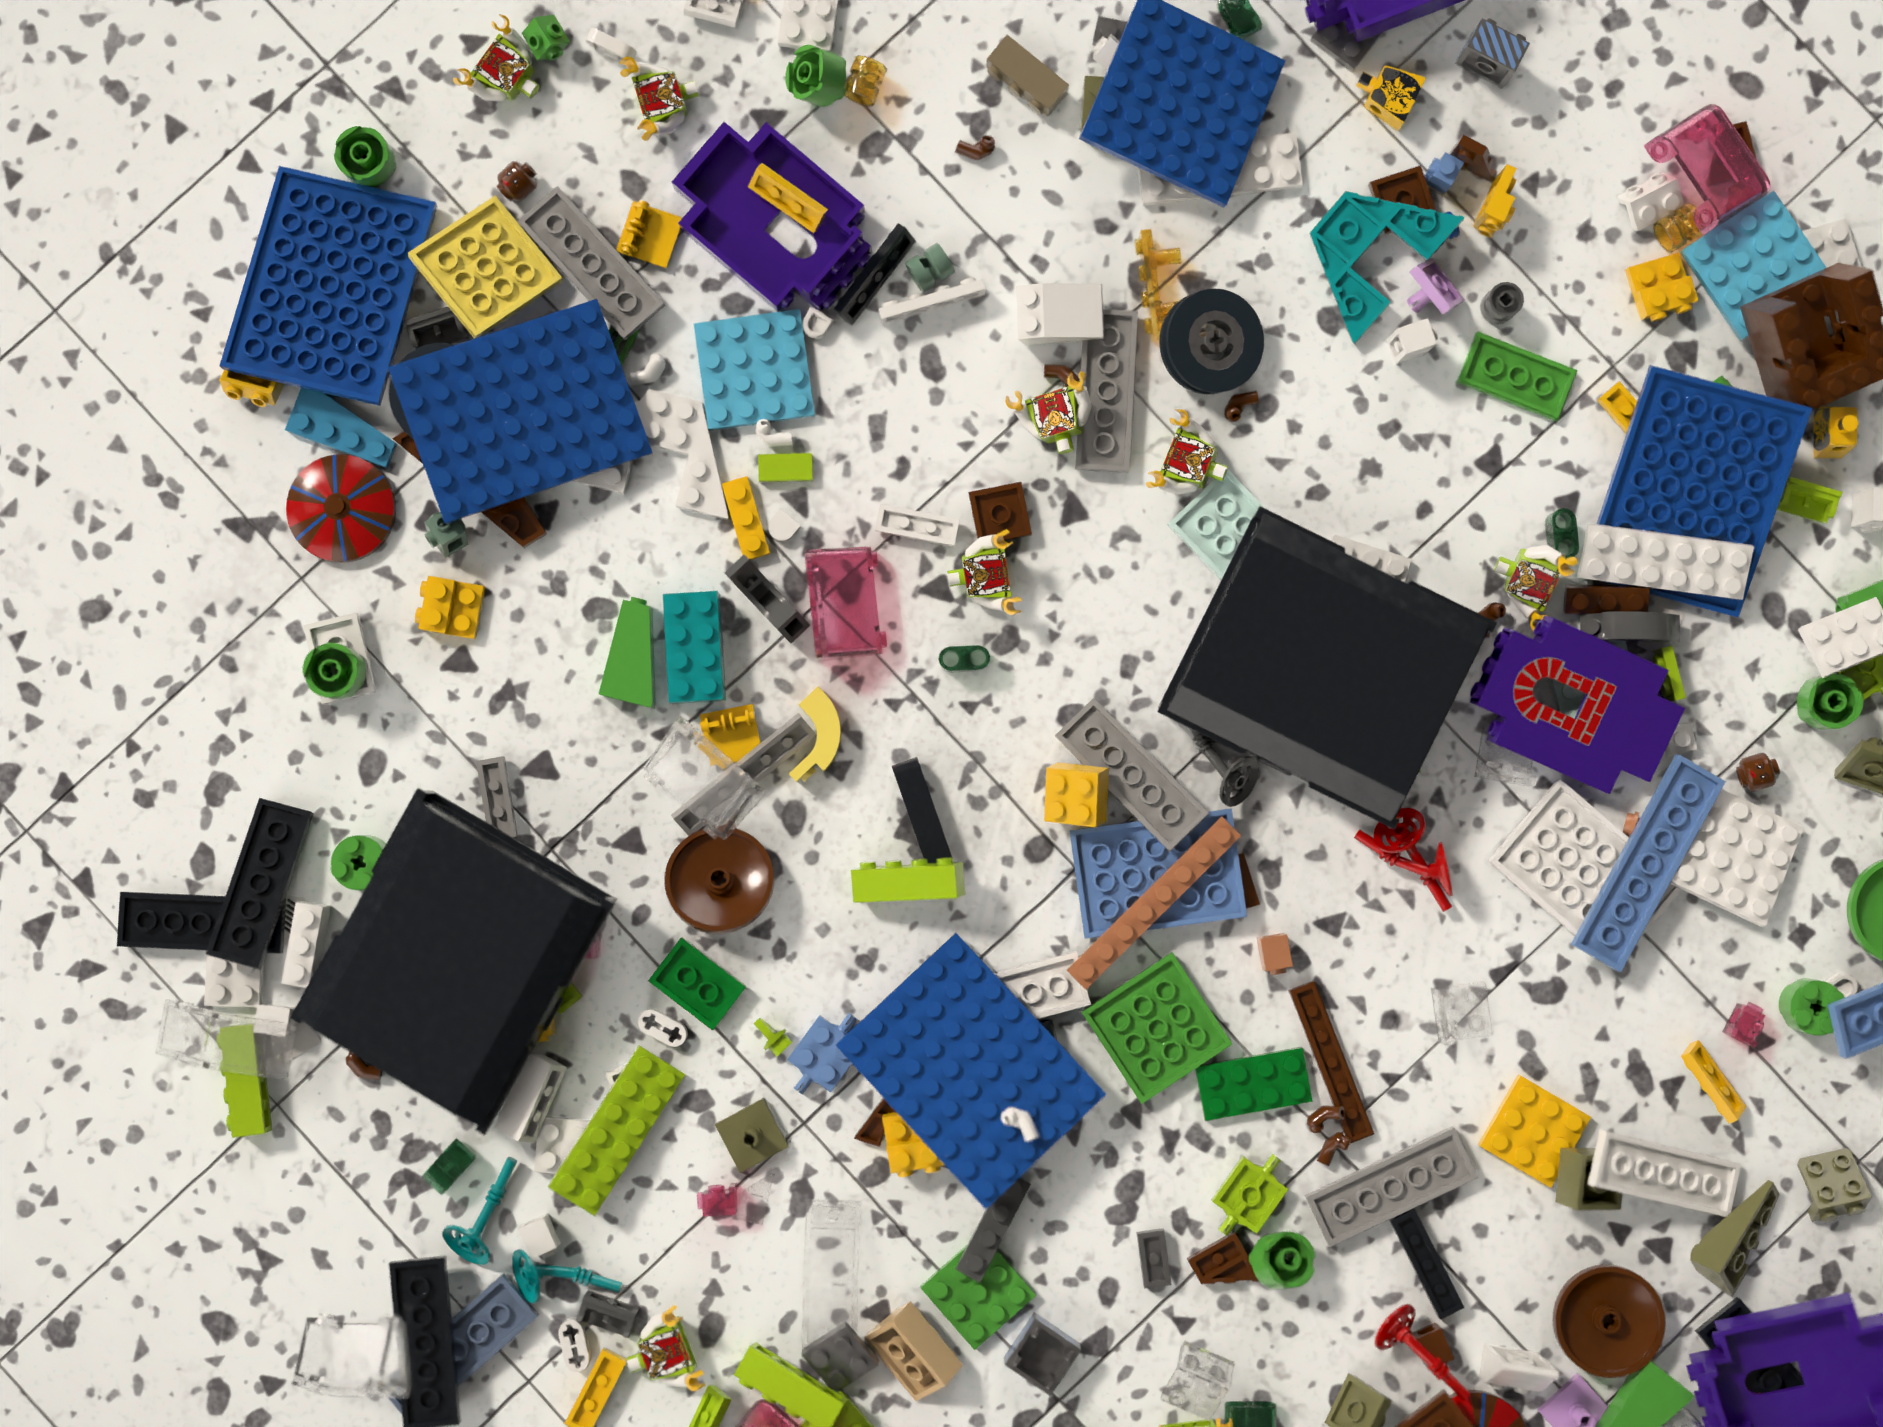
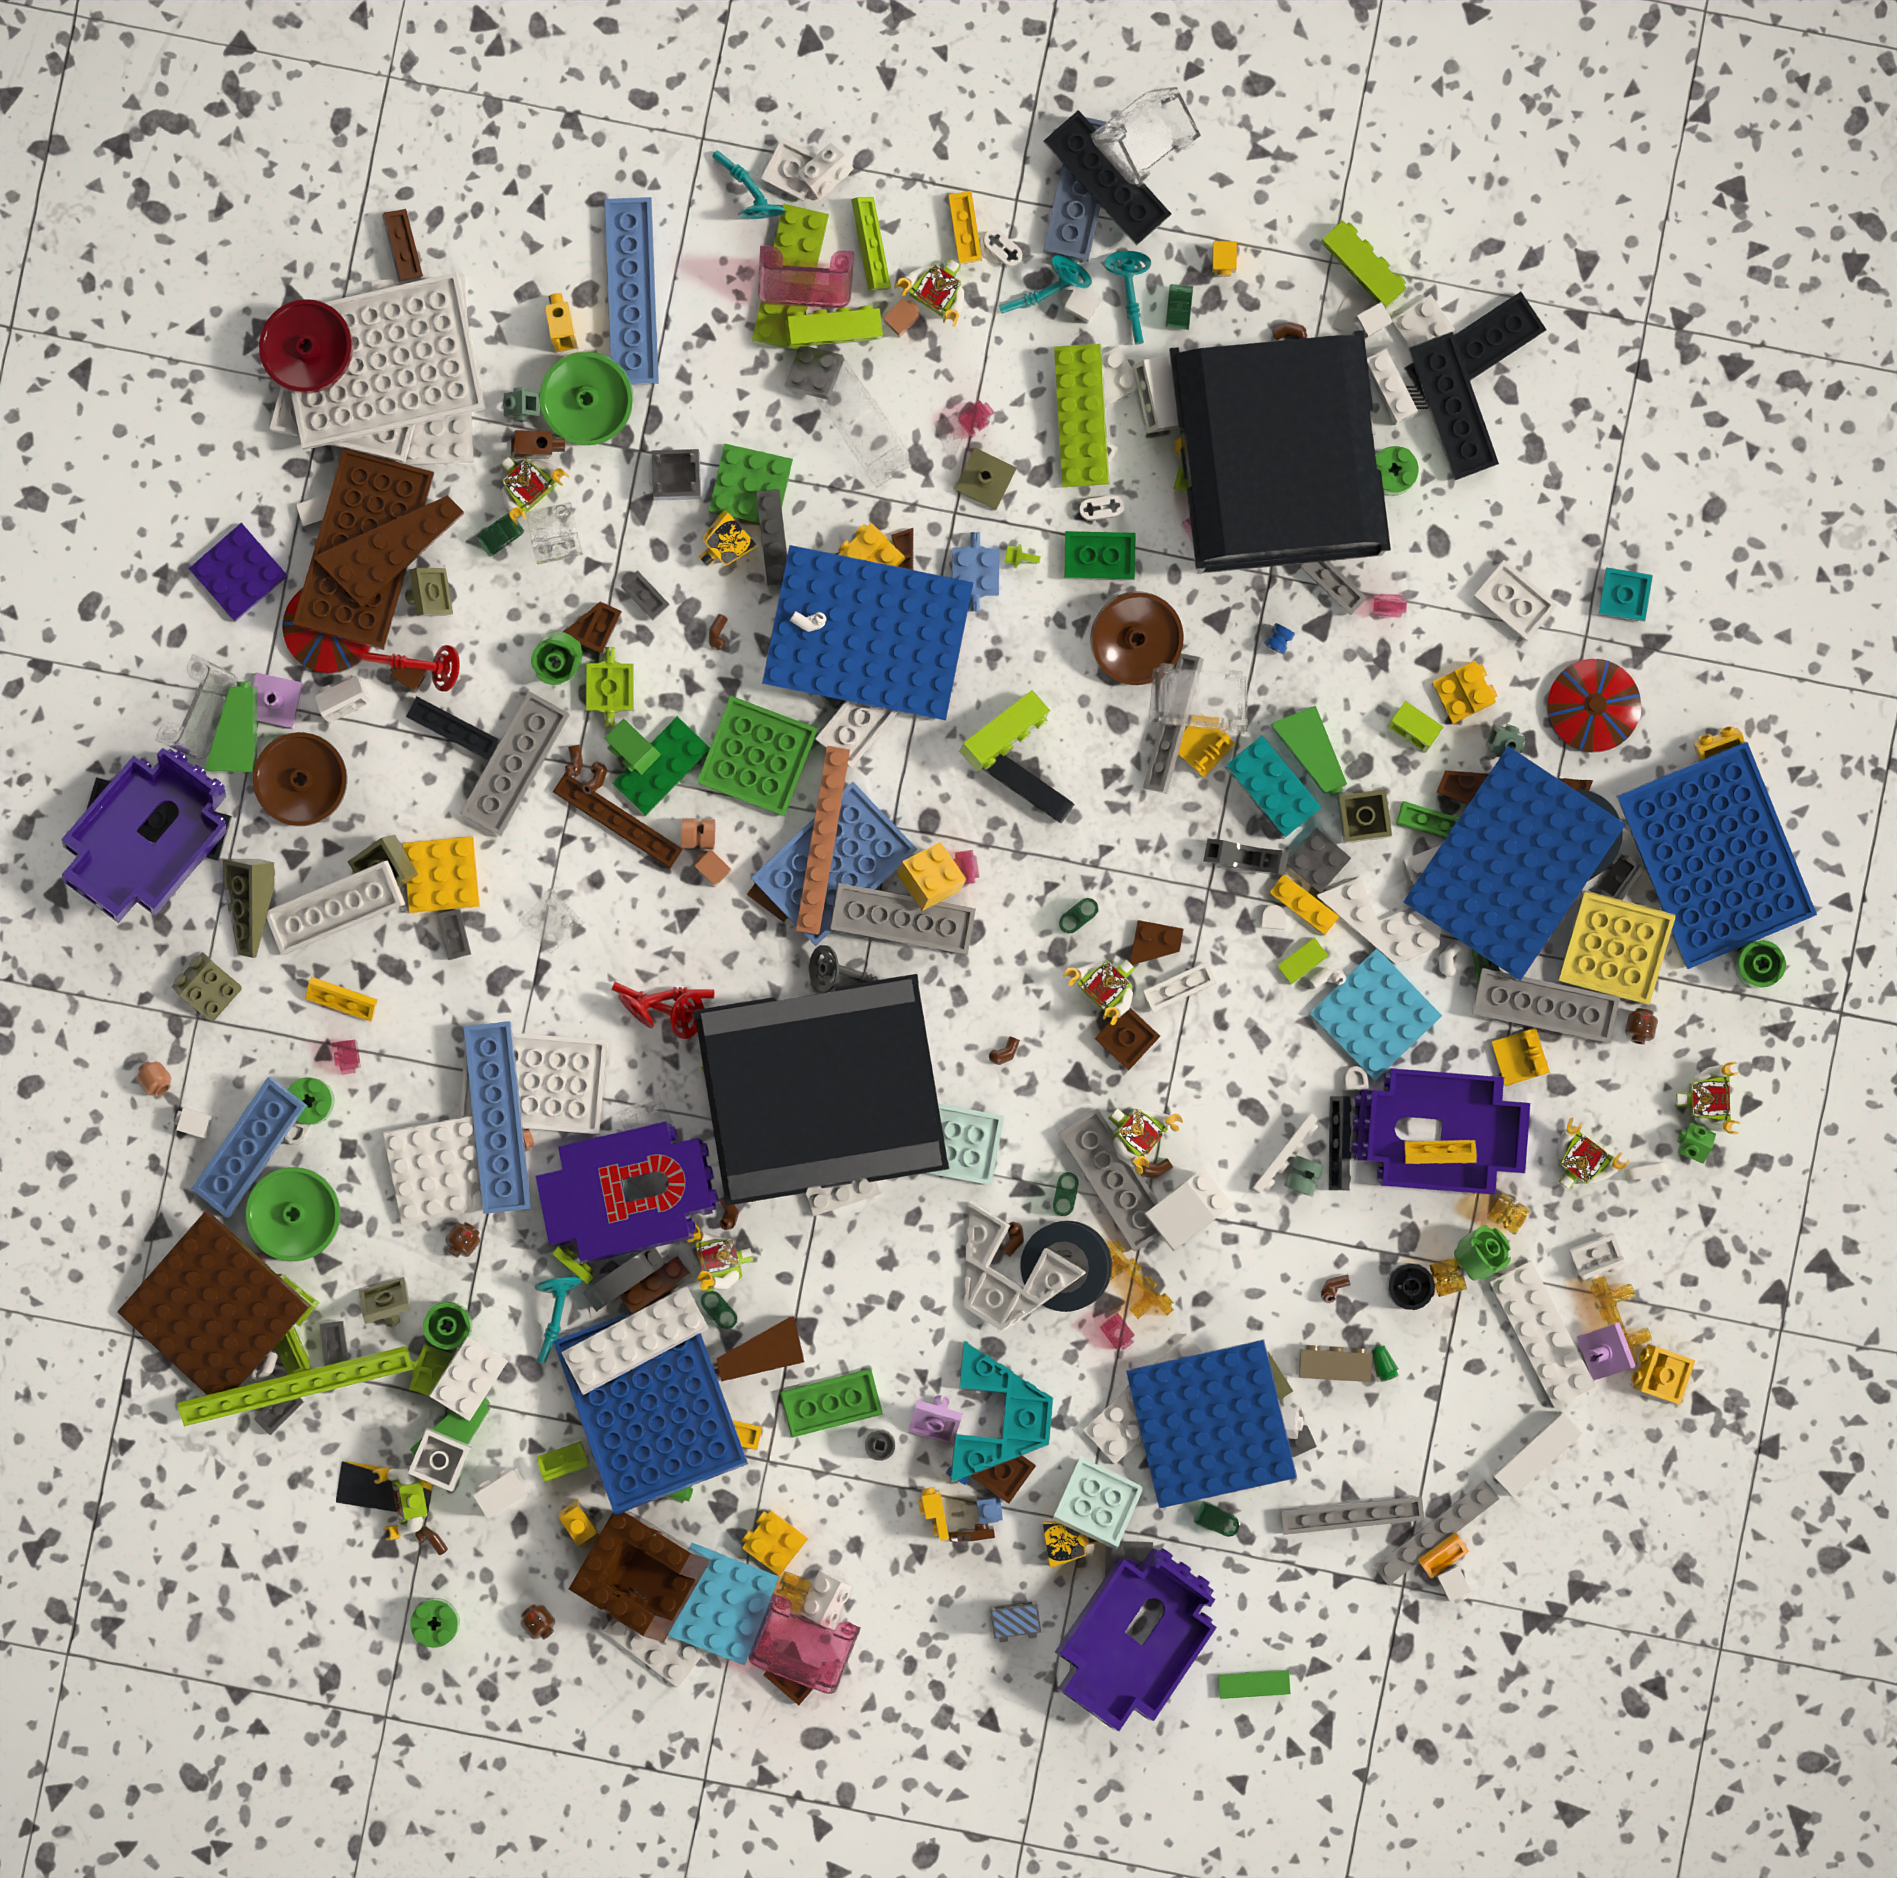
camera: 145 degrees right, 0 degrees up
(226, 1041) = (1396, 281): clear windscreen -> none
(234, 589) = (1625, 594): none -> teal plate
(323, 682) = (1504, 601): bright green brick -> none
(332, 425) = (1637, 760): dark azure wing -> none
(372, 1182) = (1224, 258): none -> yellow brick
(460, 739) = (1389, 605): none -> clear pink brick
(520, 608) = (1415, 726): none -> lime hinge
(574, 514) = (1425, 820): none -> bright green tile
(588, 781) = (1279, 638): none -> blue wheel
(607, 1313) = (995, 285): dark grey hinge -> none
(629, 557) = (1364, 816): none -> olive brick
(702, 549) = (1318, 860): none -> flat silver plate
(718, 1349) = (902, 316): none -> nougat brick
(765, 95) = (1508, 1213): none -> clear yellow wheel
(828, 729) = (1143, 803): light yellow arch -> none
(844, 602) = (1191, 894): clear pink windscreen -> none
(899, 82) = (1420, 1295): none -> black brick
(909, 584) = (1154, 941): none -> reddish brown wing
(914, 1351) = (766, 412): tan slope -> none
(981, 44) = (1384, 1364): none -> green cone
(1034, 781) = (968, 865): none -> clear pink brick
(1040, 1255) = (725, 541): none -> torso
(1112, 1175) = (715, 630): none -> reddish brown arm
(1123, 579) = (1006, 1054): none -> reddish brown arm
(1162, 410) = (1069, 1195): none -> clear green beam
(1188, 460) = (1021, 1170): torso -> none
(1202, 258) = (1111, 1325): none -> clear pink brick
(1271, 1122) = (632, 746): none -> bright green brick
(1273, 1001) = (690, 836): none -> nougat wheel
(1297, 365) = (993, 1294): none -> white wing
(1339, 104) = (1098, 1503): none -> light aqua plate
(1412, 341) = (924, 1369): white brick -> none
(1548, 465) = (765, 1352): none -> reddish brown slope
(1563, 1065) = (454, 934): none -> flat silver plate
(1682, 740) = (532, 1225): white plate -> none
(1734, 626) = (558, 1289): none -> teal dish

